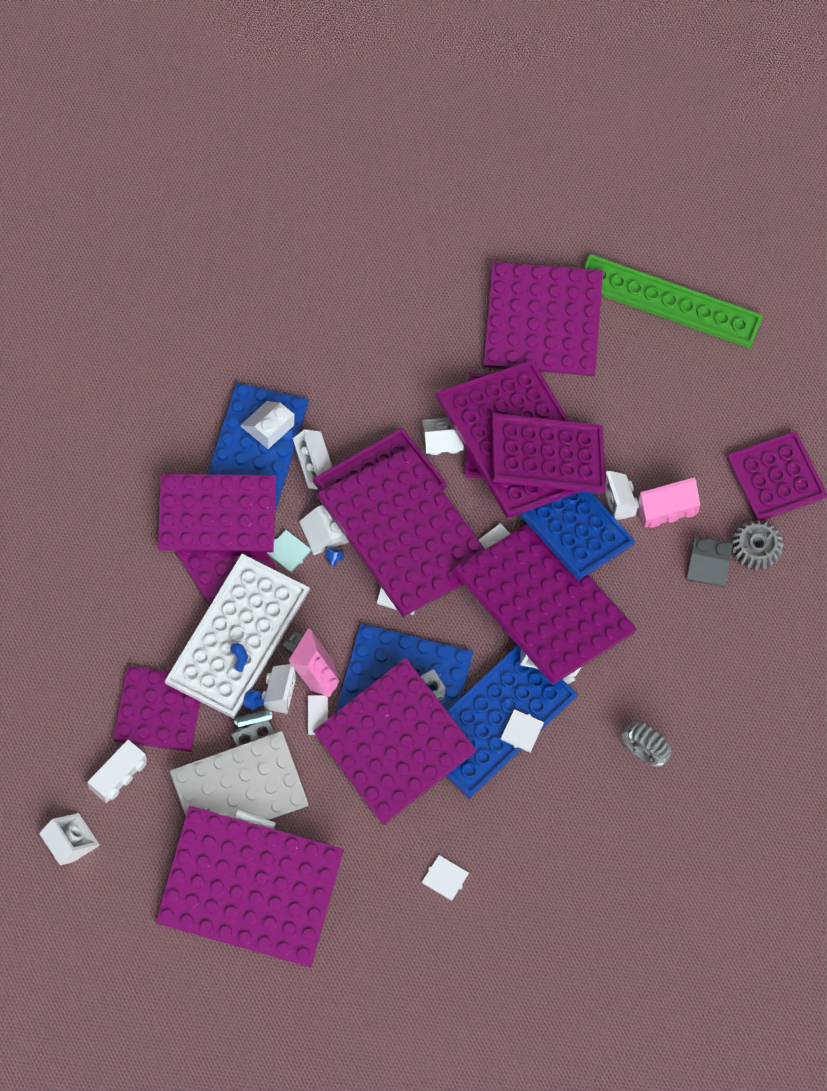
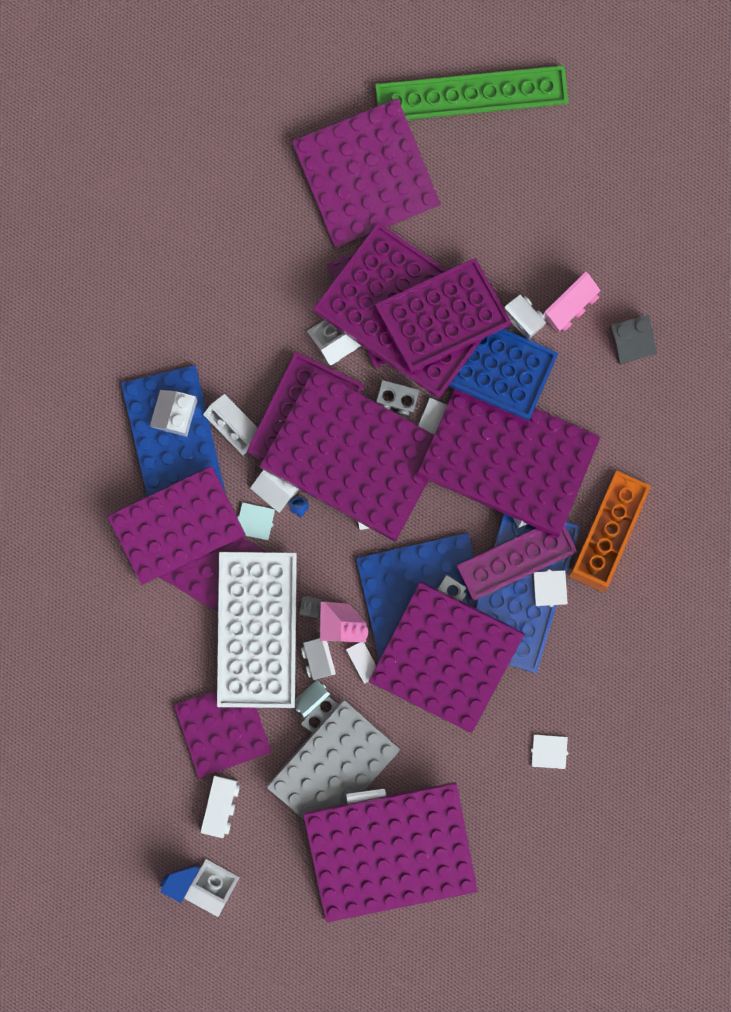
camera: 25 degrees left, 20 degrees up
(41, 811) = (178, 882): none -> blue slope
(241, 654) = (271, 649): blue arm -> none
(253, 699) = (302, 682): blue tile -> none
(475, 505) = (398, 392): none -> light grey brick
(502, 689) = (514, 561): none -> magenta plate
(601, 712) = (610, 531): none -> orange slope
(646, 744) = (664, 544): light grey gear -> none
(757, 556) = (676, 292): light grey gear -> none
(776, 476) = (652, 222): magenta plate -> none

